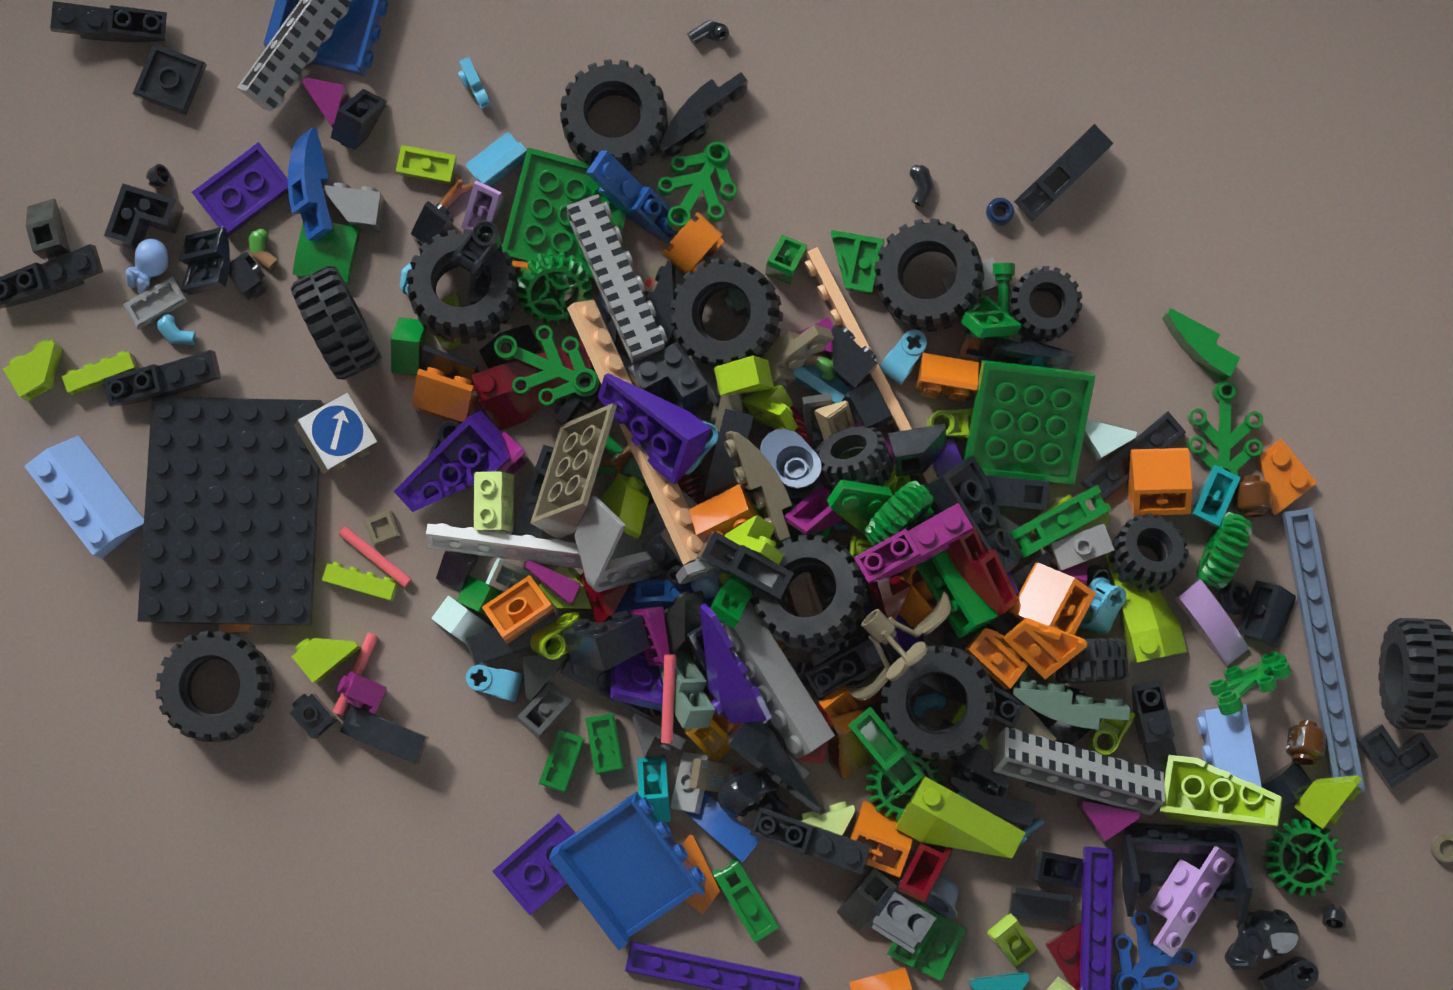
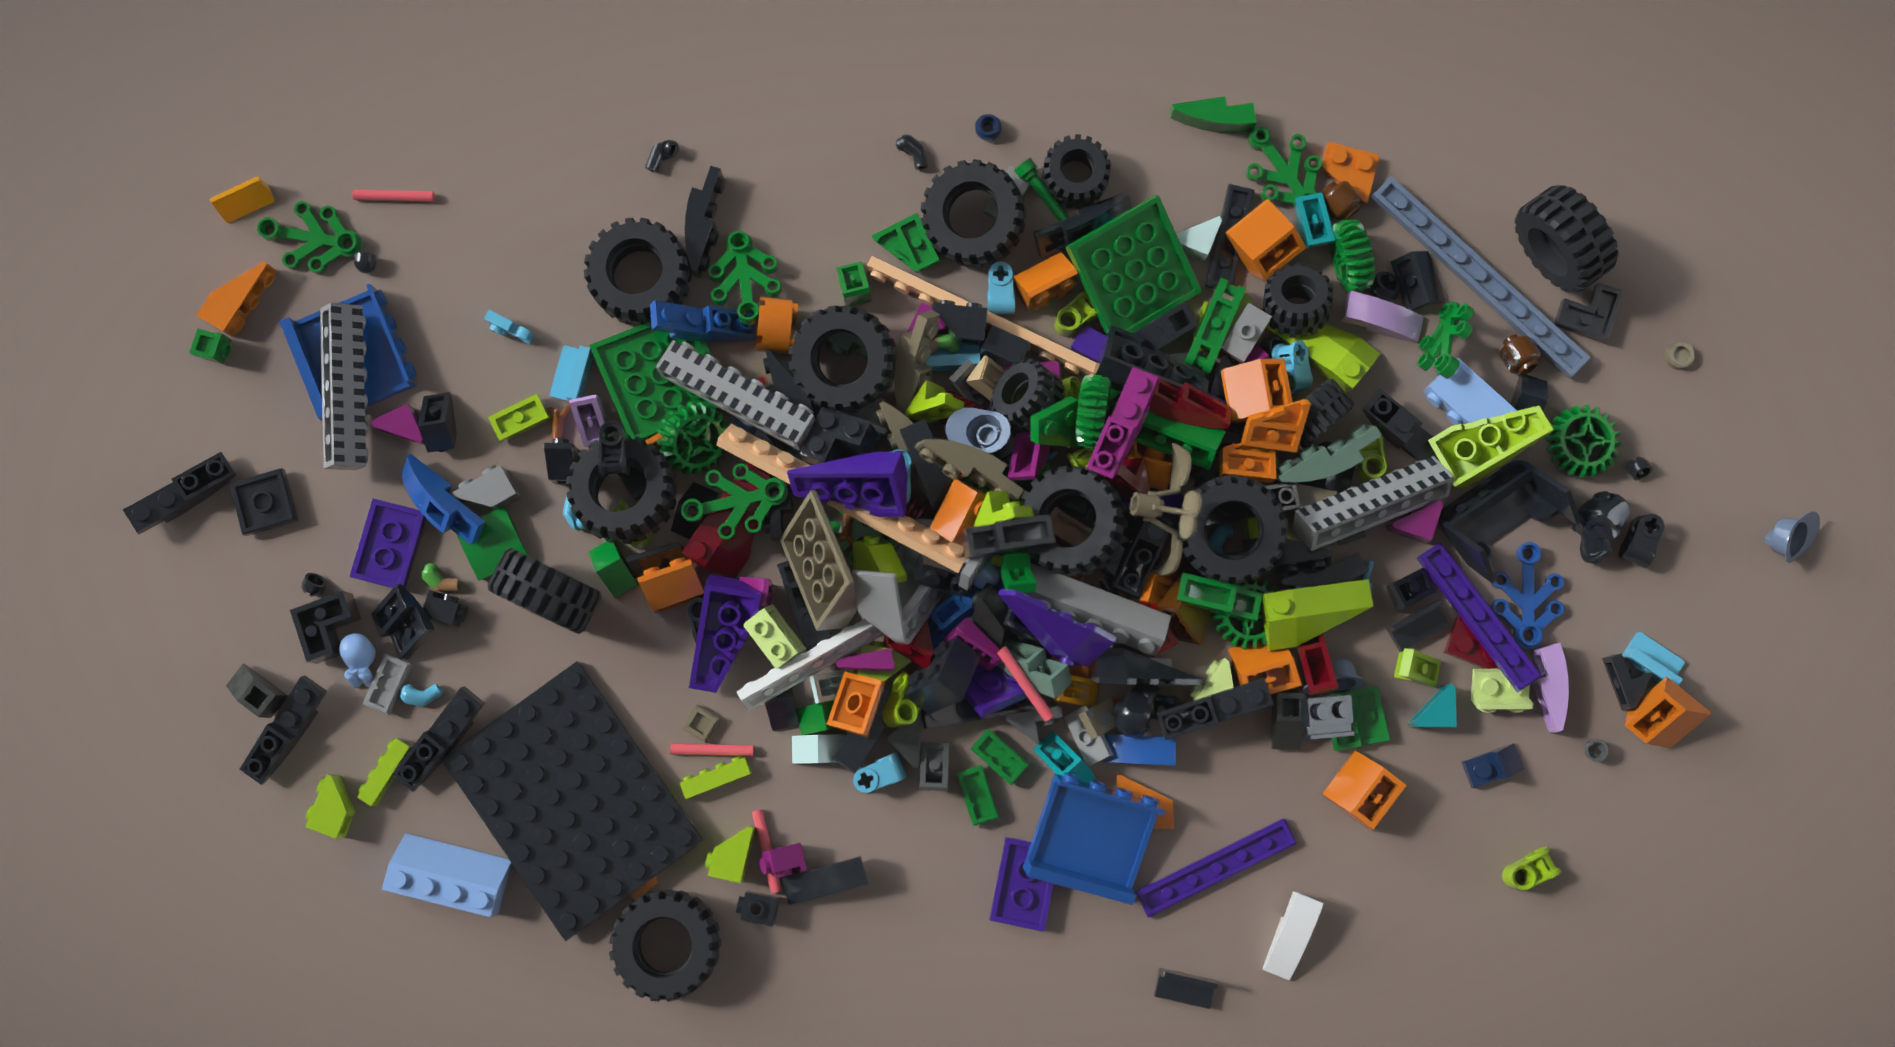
camera: 35 degrees left, 0 degrees up
(335, 434) = (610, 678): piece -> none
(744, 376) = (894, 394): lime slope -> none
(746, 901) = (1198, 793): green plate -> none
(916, 448) = (1066, 352): black slope -> none
(989, 320) = (1046, 214): green wing -> none
(1063, 172) = (1014, 62): black slope -> none
(1186, 896) = (1521, 537): lavender bracket -> none
(1326, 796) = (1567, 384): lime slope -> none

